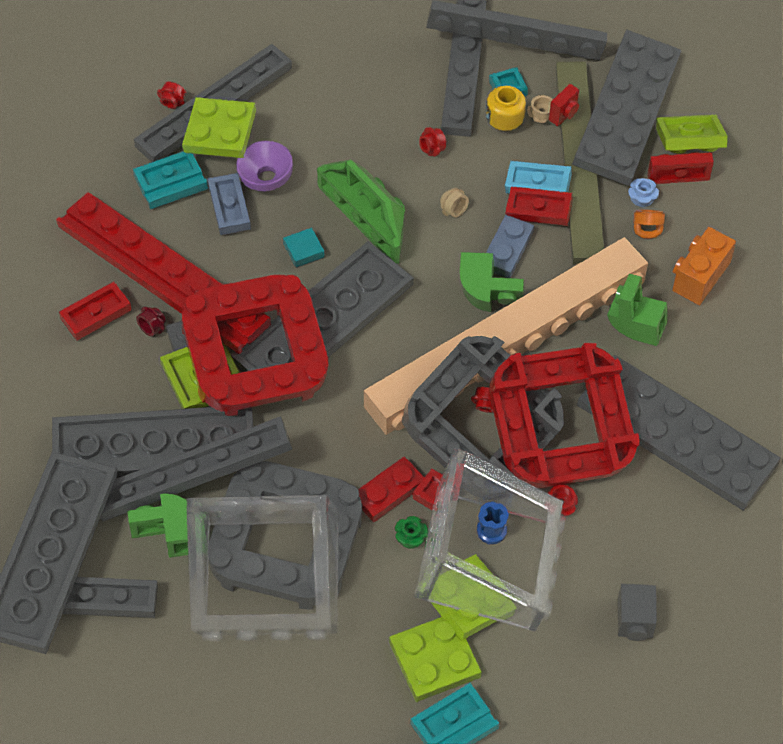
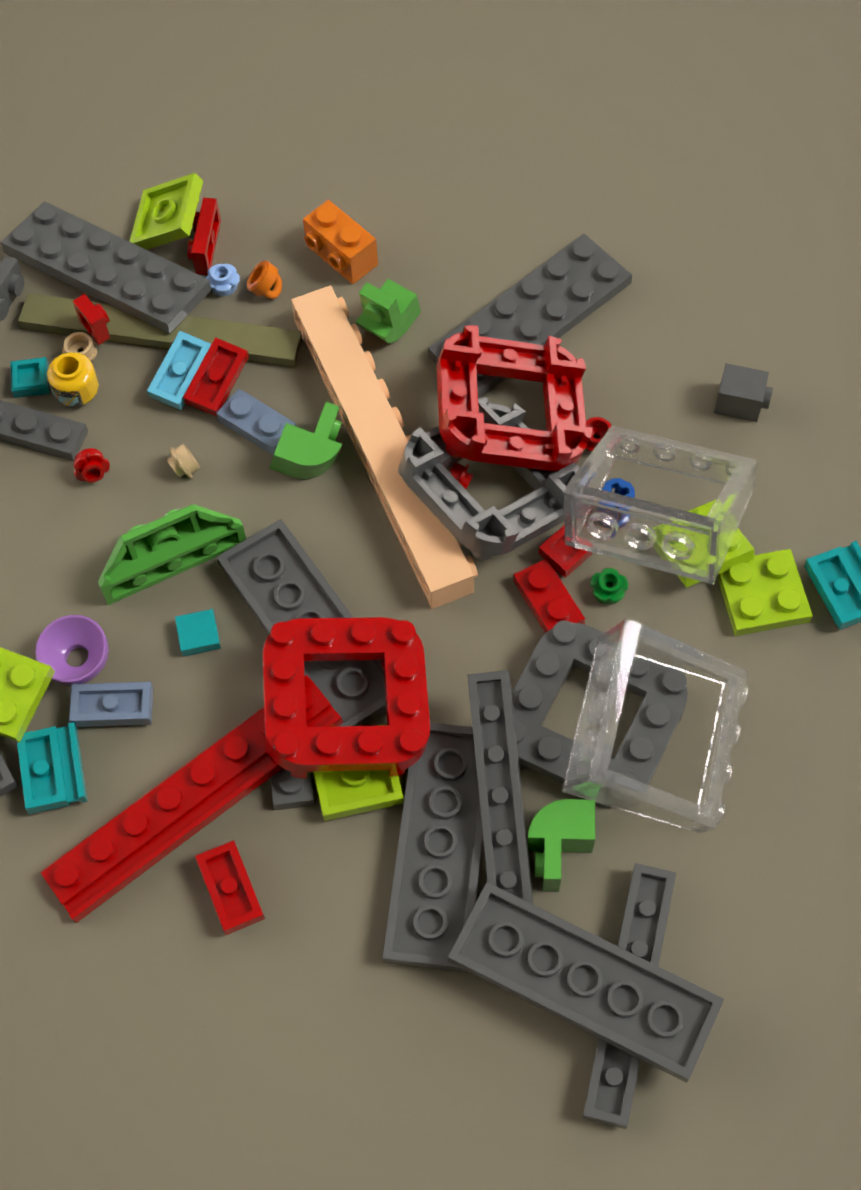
camera: 75 degrees left, 5 degrees up
(151, 321) = (262, 821): dark red plate -> none

